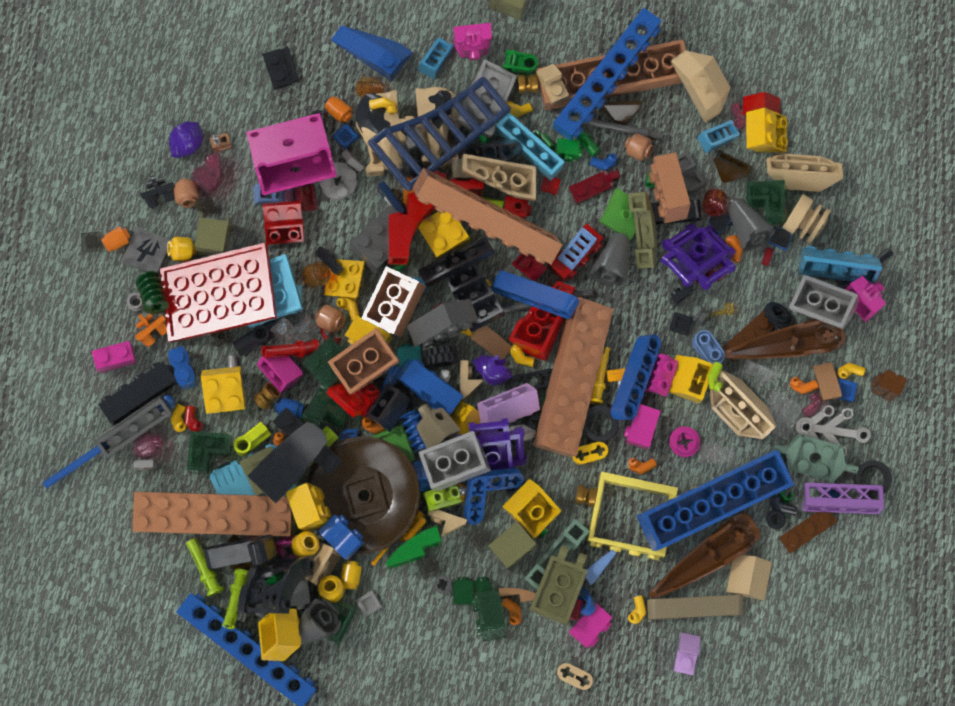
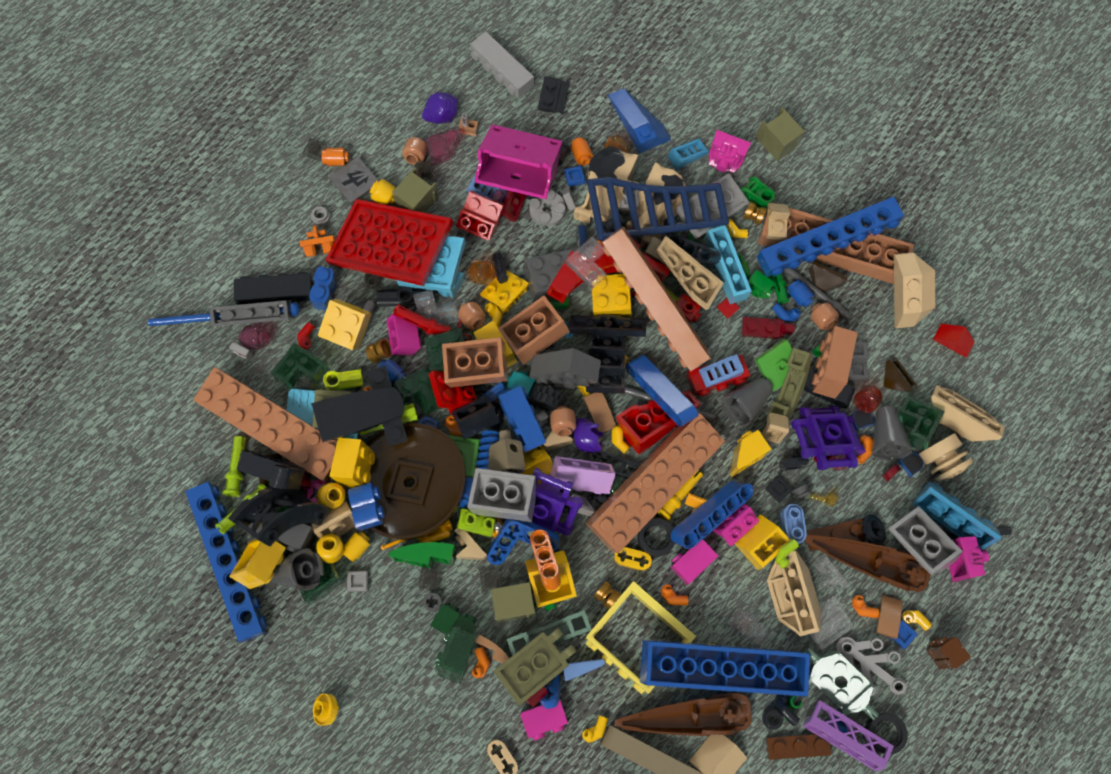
camera: 30 degrees right, 5 degrees down
(114, 357) = (273, 248): dark pink brick -> none
(151, 292) = (335, 213): dark green piece -> none
(166, 190) = (392, 134): black hips -> none
(177, 420) = (293, 329): yellow arm -> none
(216, 65) = (501, 65): none -> light grey brick
(390, 105) = (622, 159): yellow arm -> none
(406, 220) = (584, 264): none -> clear plate
(466, 369) = (563, 421): none -> nougat head
(528, 498) = (545, 567): none -> orange beam
(529, 267) = (670, 365): dark red slope -> none
(608, 137) = (801, 293): none -> blue brick
(637, 307) = (750, 449): none -> yellow slope
(650, 272) = (776, 428): none -> tan slope
(688, 434) = (732, 592): dark pink gear -> none
(708, 141) = (889, 345): dark azure slope -> none
(740, 120) = (928, 341): clear pink arm -> none
(766, 131) = (947, 362): yellow slope -> none
(814, 406) = (863, 633): clear pink arm -> none

